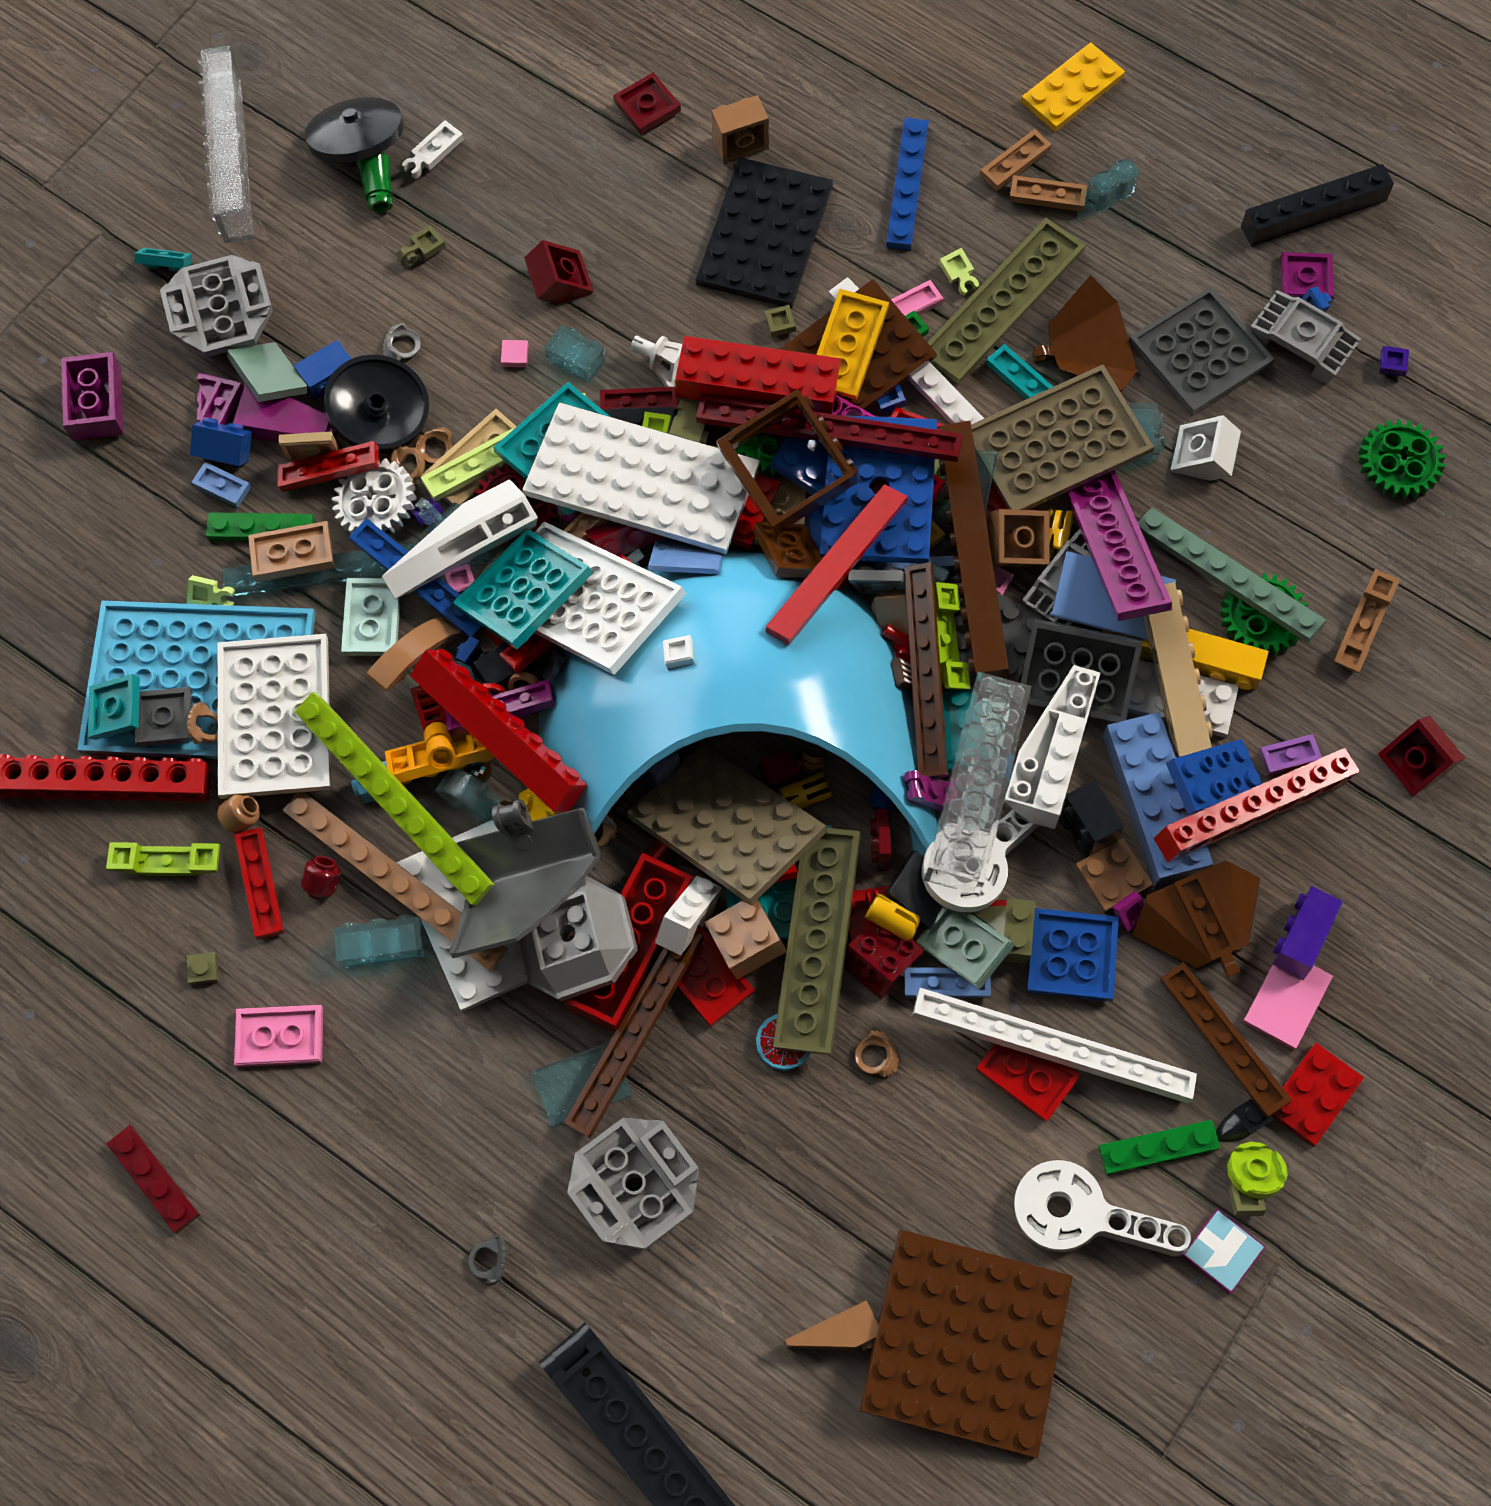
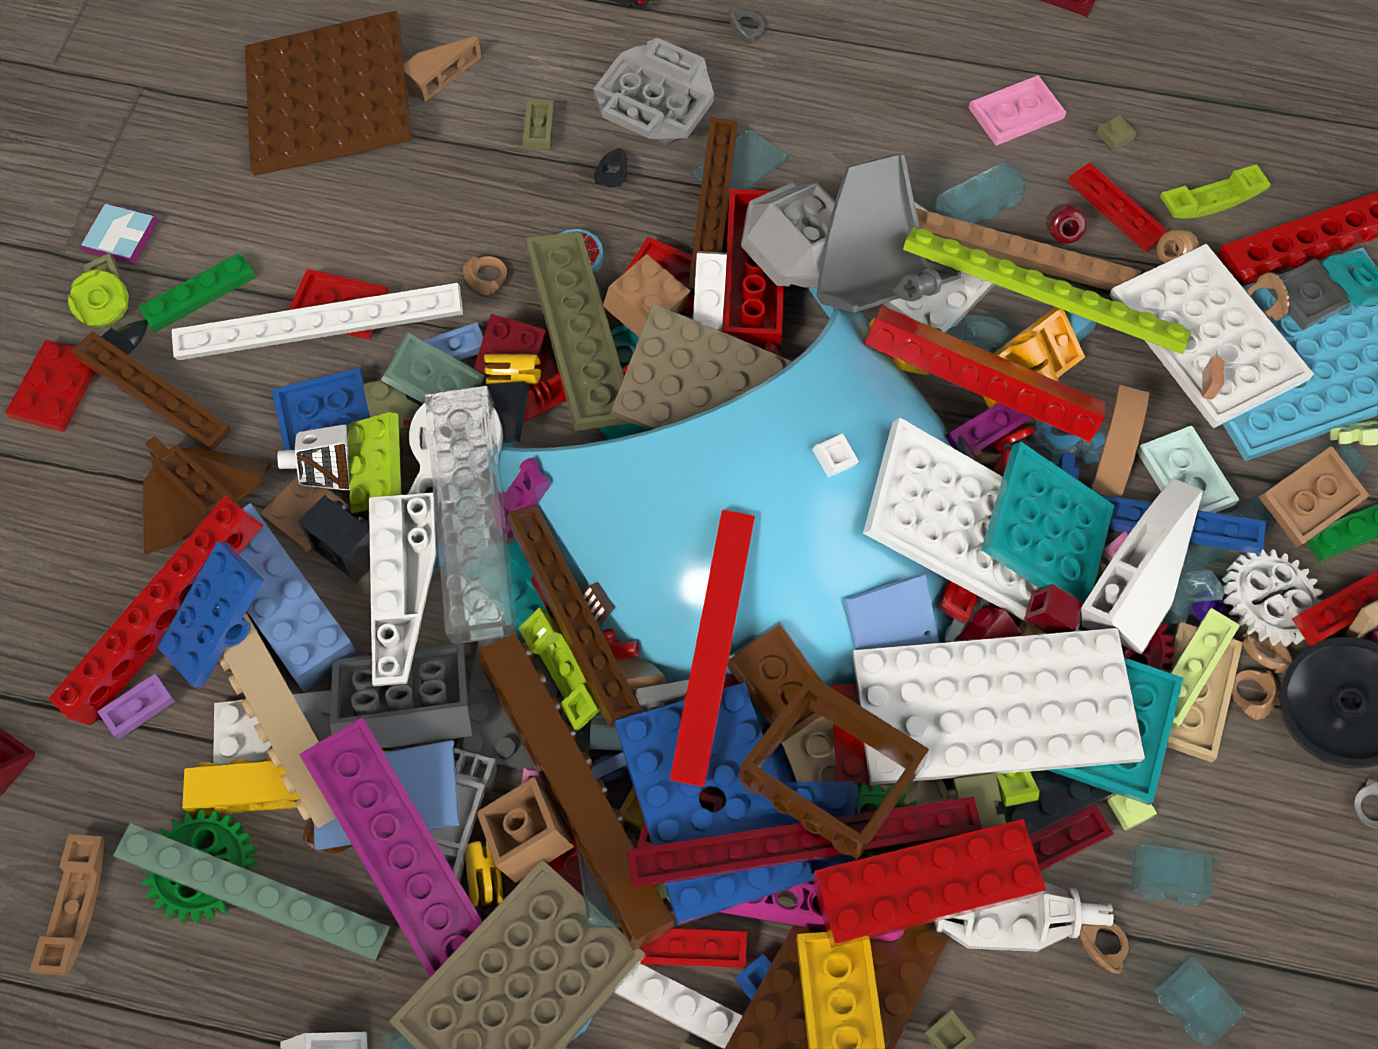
camera: 155 degrees right, 5 degrees down
(308, 660) = (1213, 377): none -> nougat tile
(514, 353) = (1242, 849): bright pink tile -> none
(557, 273) = (1265, 982): dark red slope -> none
(557, 528) = (1053, 610): none -> dark red brick
(607, 278) = (1198, 1002): none -> clear light blue brick
(648, 320) = (1111, 962): none -> medium nougat piece
(708, 1126) = (612, 169): none -> black plate
(760, 1211) = (538, 124): none -> olive plate
(881, 840) = (548, 427): dark red plate -> none
(1043, 874) = (373, 460): none -> lime plate
(1077, 898) = (320, 458): none -> torso
(1087, 1213) = (238, 210): white beam -> none
(1129, 910) = (276, 479): magenta plate -> none
(1287, 1004) = (95, 459): bright pink tile -> none
(1306, 932) = (83, 516): dark purple brick -> none

